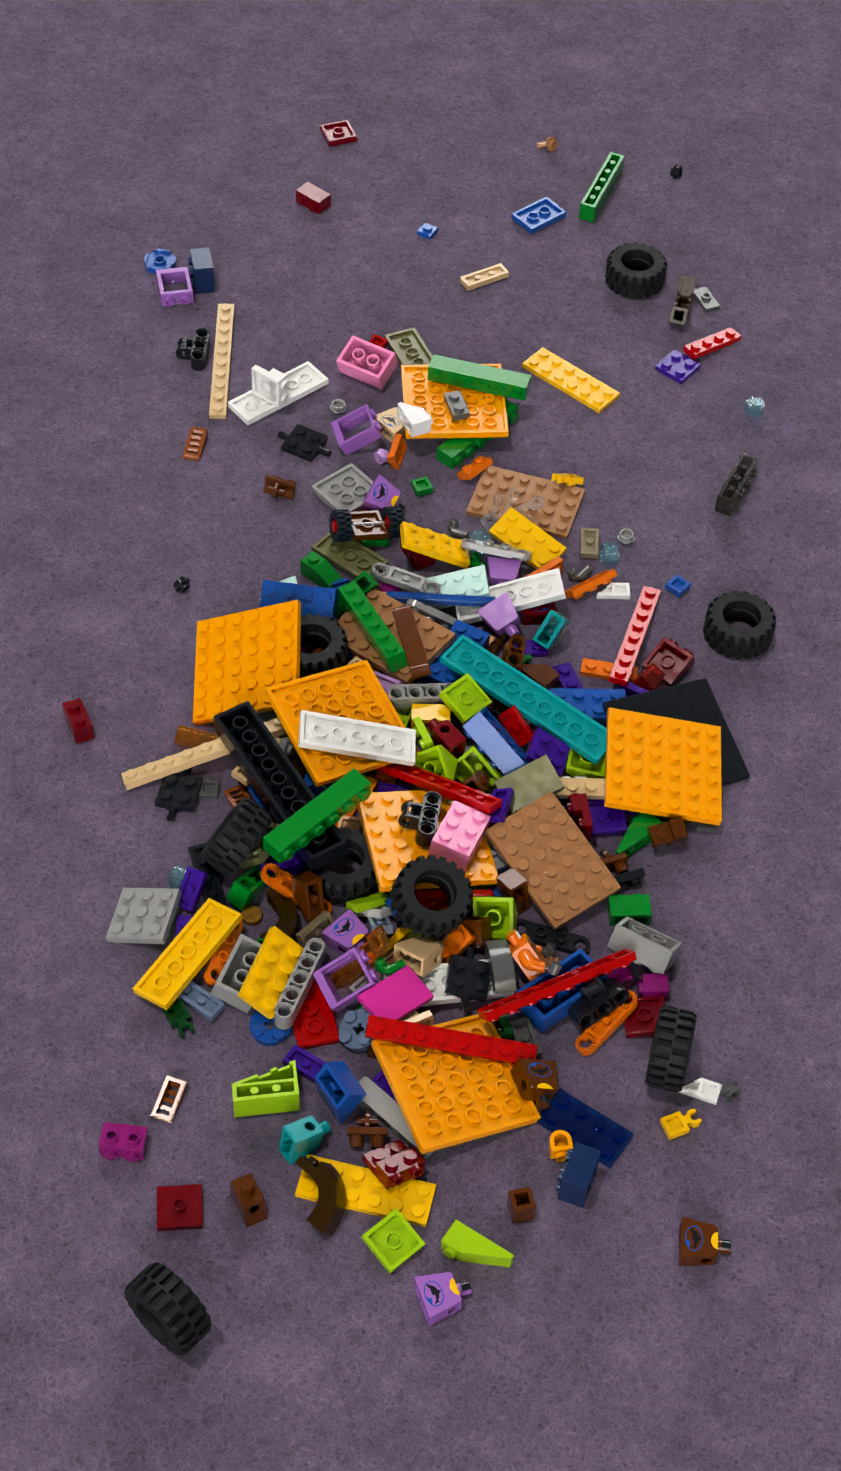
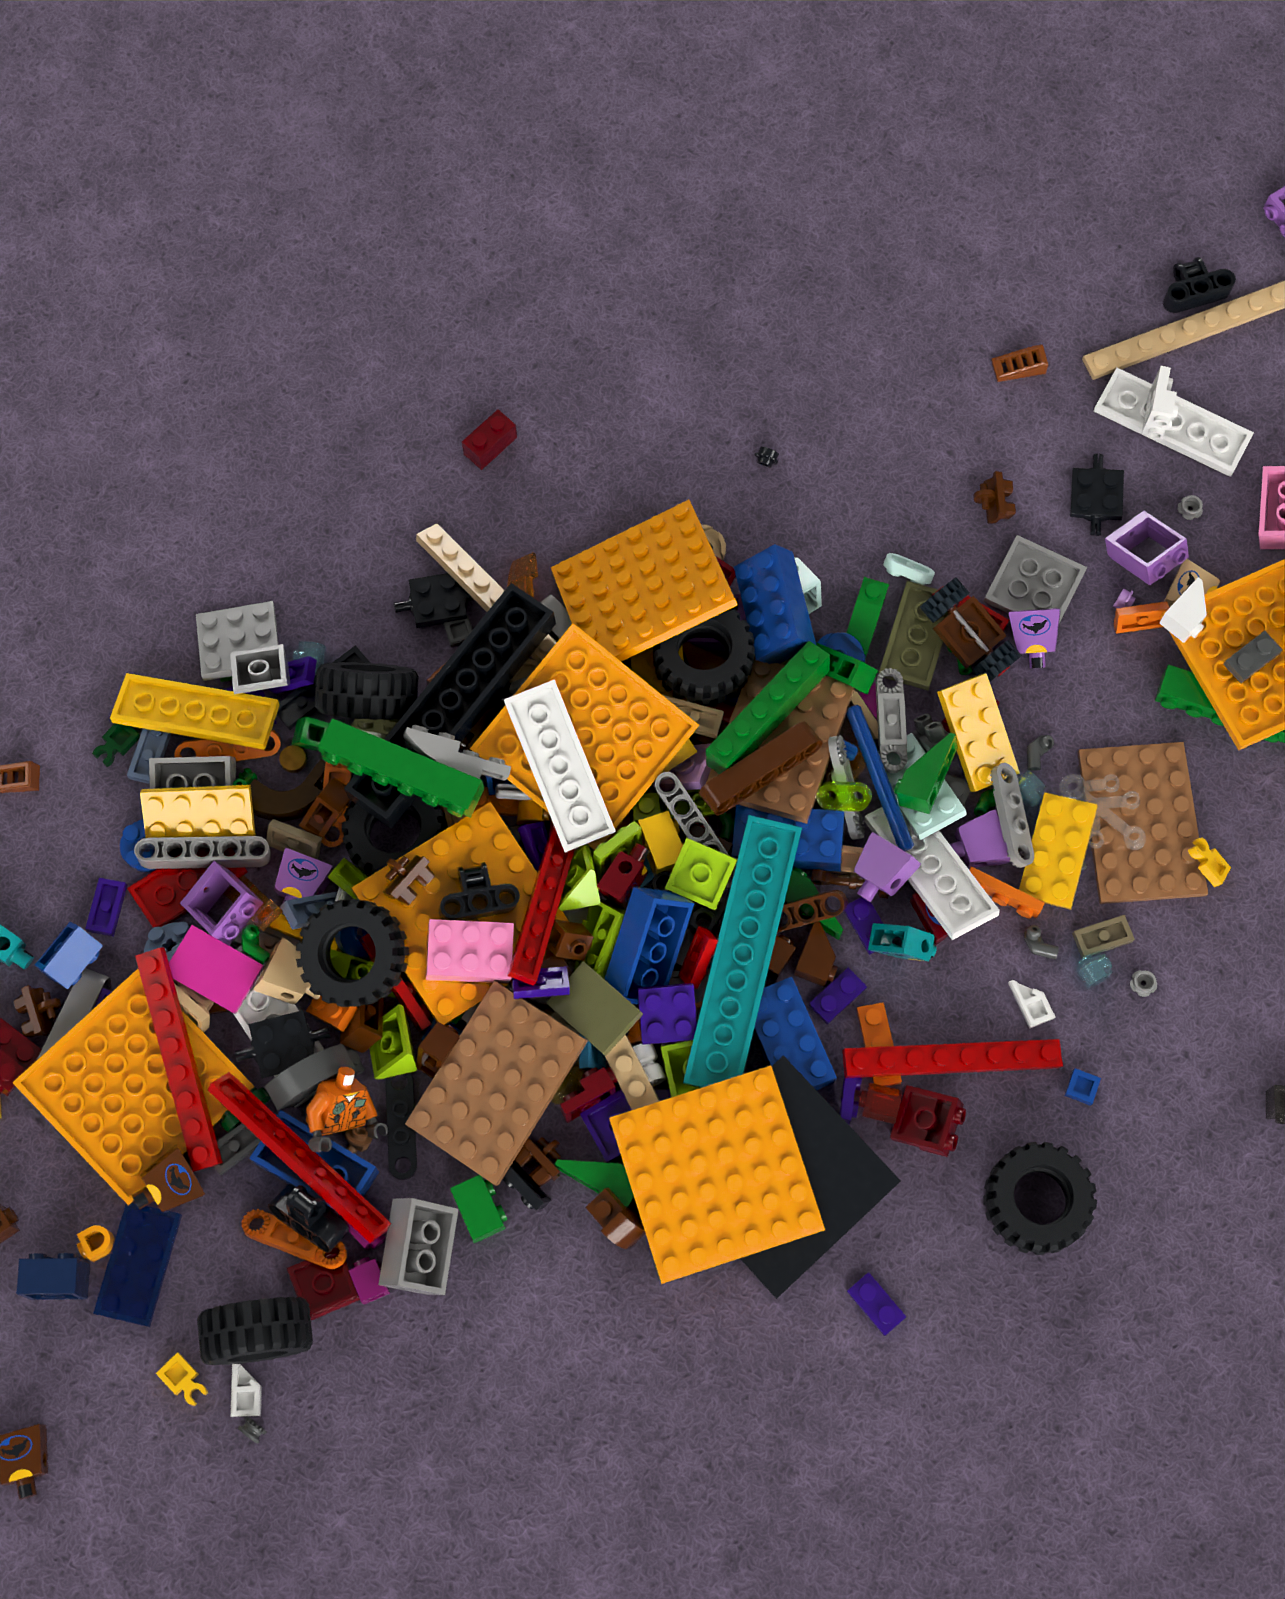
camera: 70 degrees right, 20 degrees up
(185, 895) = (259, 669): none -> light grey slope
(267, 1093) = (47, 880): lime wedge -> none
(298, 548) = (916, 572): none -> light aqua plate
(319, 783) = (445, 751): none -> light grey slope
(391, 846) = (399, 887): none -> reddish brown hips
(421, 486) = (1094, 674): green plate -> none
(426, 566) = (928, 732): none -> dark grey hips
(446, 615) = (845, 797): none -> clear neon green plate
(460, 577) = (925, 777): none -> green slope
(471, 470) = (1166, 730): orange plate -> none
(590, 584) = (1024, 964): orange plate -> none
(771, 729) = (876, 1304): none -> dark purple plate

